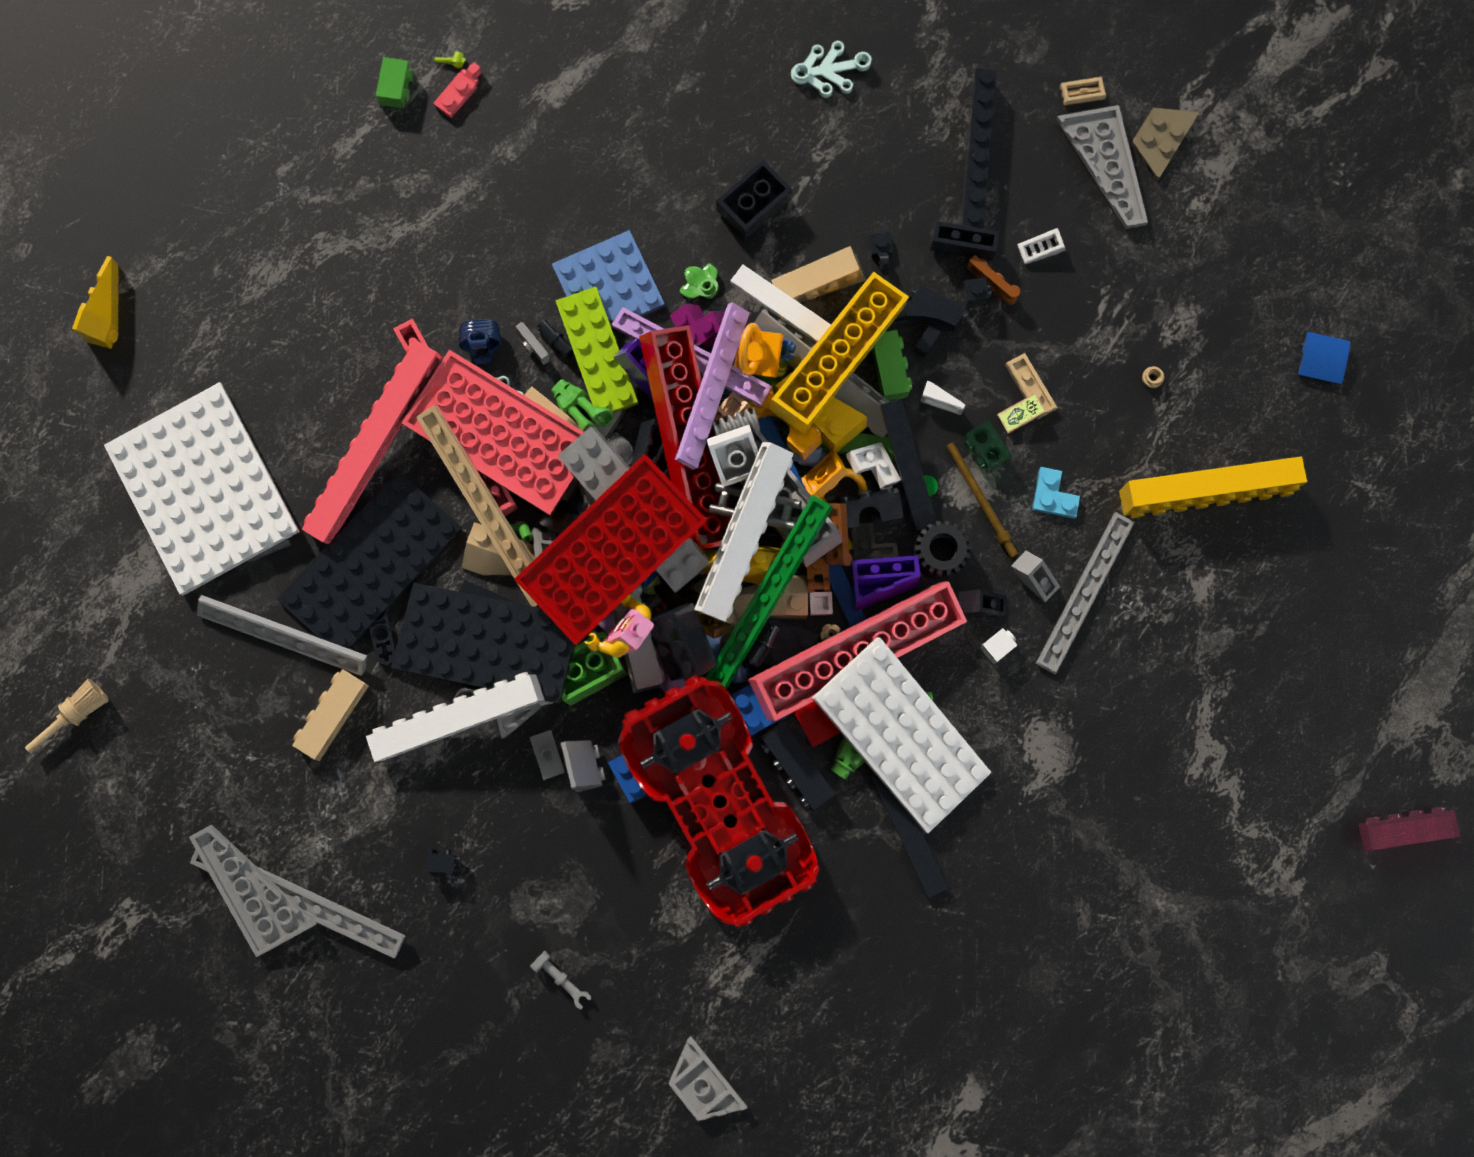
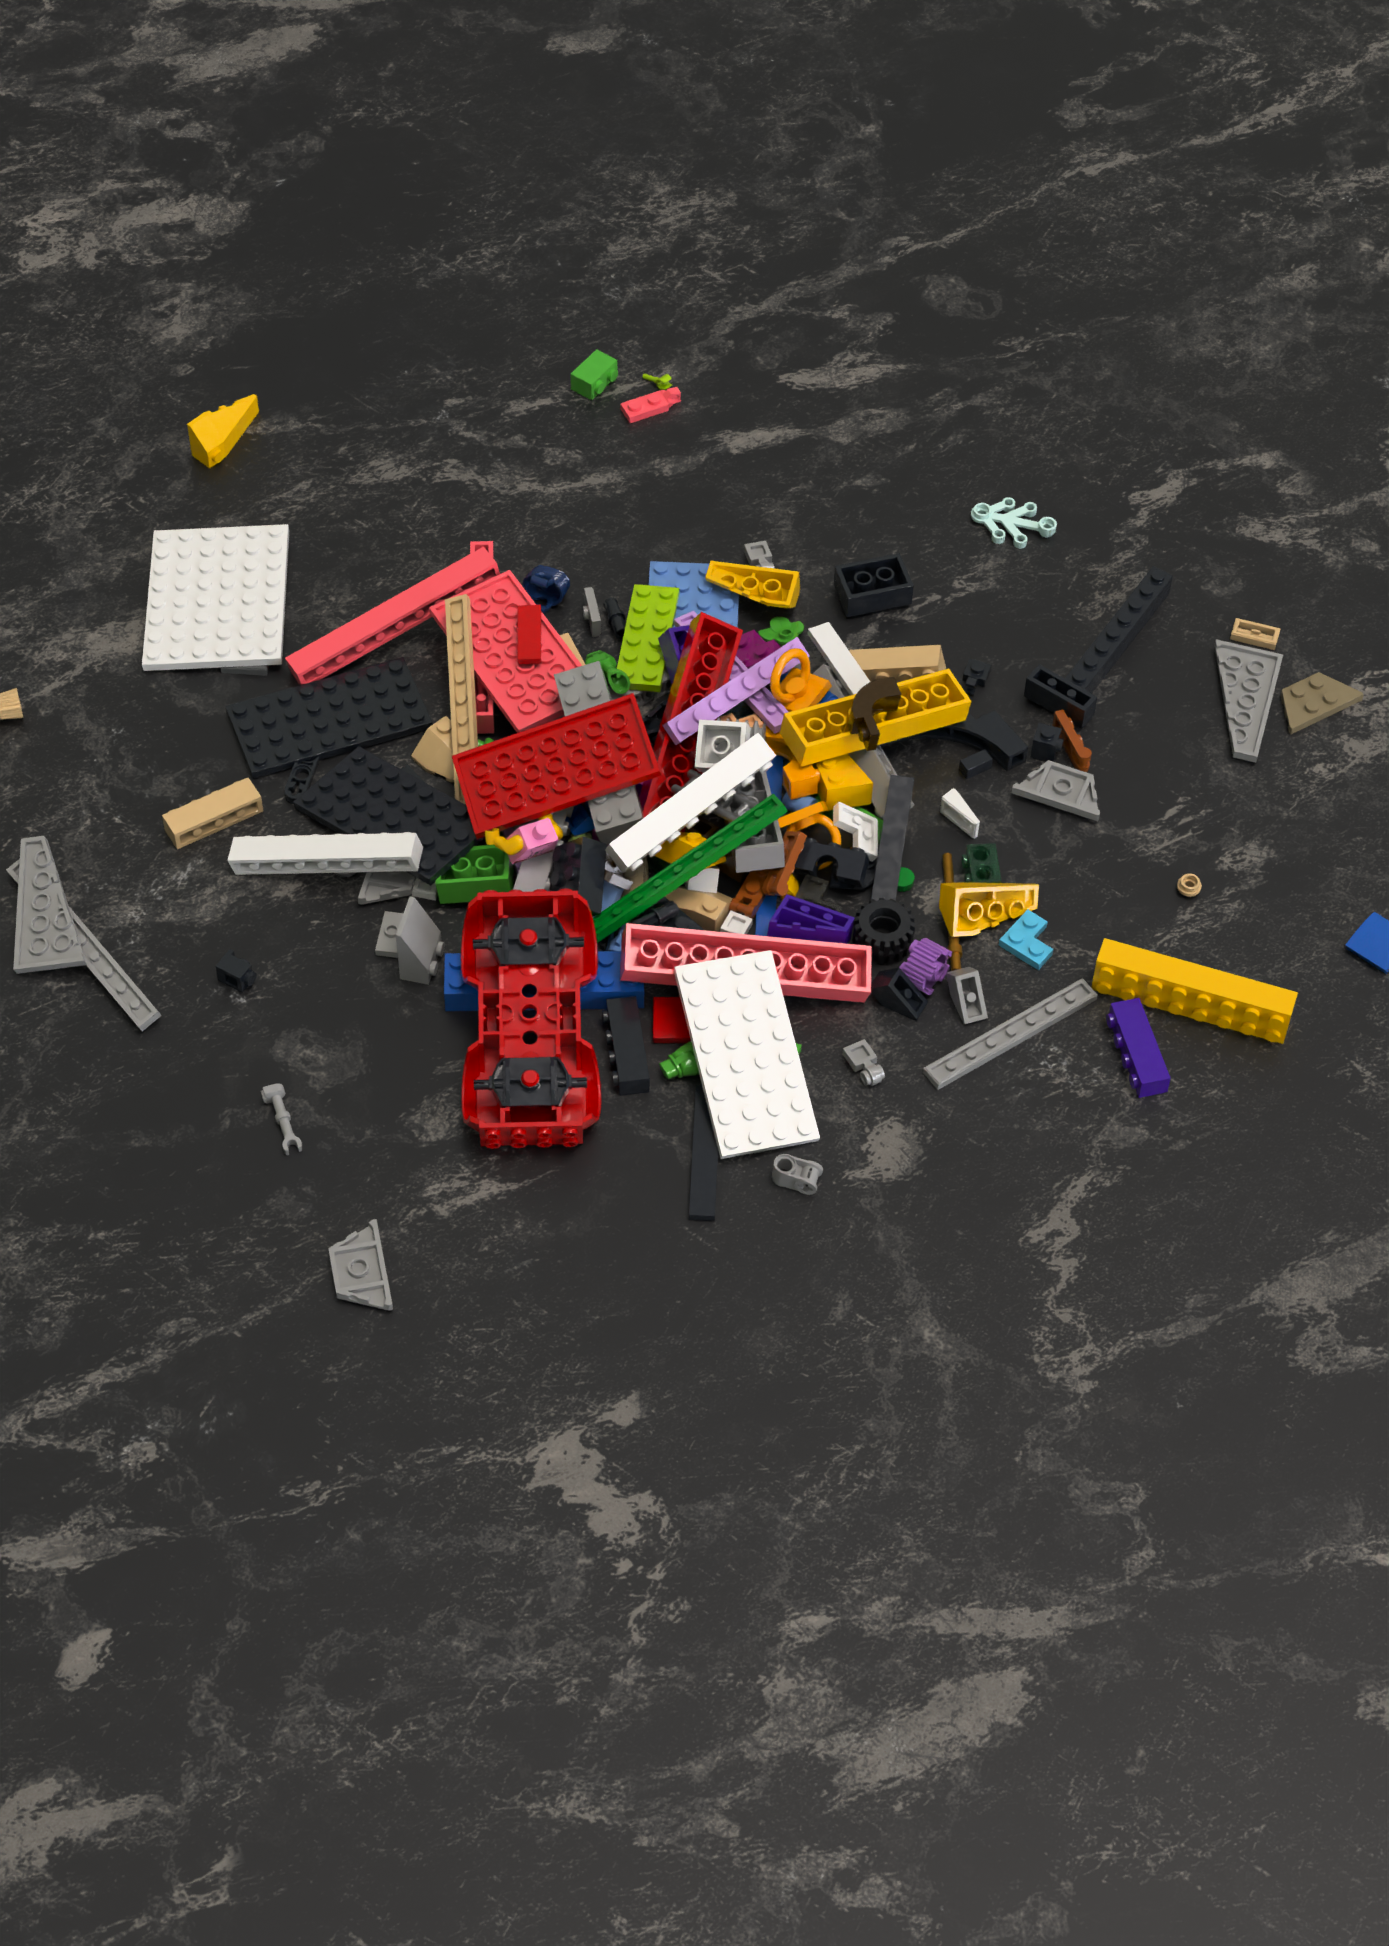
camera: 30 degrees right, 25 degrees down
(281, 635) = (210, 733): light grey tile -> none
(505, 412) = (529, 634): none -> red tile
(639, 211) = (758, 554): none -> light grey plate
(660, 249) = (760, 584): none -> yellow wedge
(834, 364) = (871, 699): none -> dark brown arch
(891, 366) = (928, 764): bright green brick -> none
(983, 679) = (863, 1057): none -> light grey plate
(994, 570) = (926, 964): none -> medium lavender brick
(995, 815) = (797, 1173): none -> light grey piece
(999, 645) = (893, 1035): white brick -> none
(1001, 486) = (976, 906): none -> yellow wedge
(1008, 332) = (1062, 789): none -> light grey wing
(1021, 413) = (1034, 857): tile -> none
(1029, 382) = (1059, 843): tan tile -> none
(1038, 240) = (1139, 743): white slope -> none
(1191, 558) = (1138, 1048): none -> dark purple brick
(1409, 830) = (1235, 1382): clear pink brick -> none

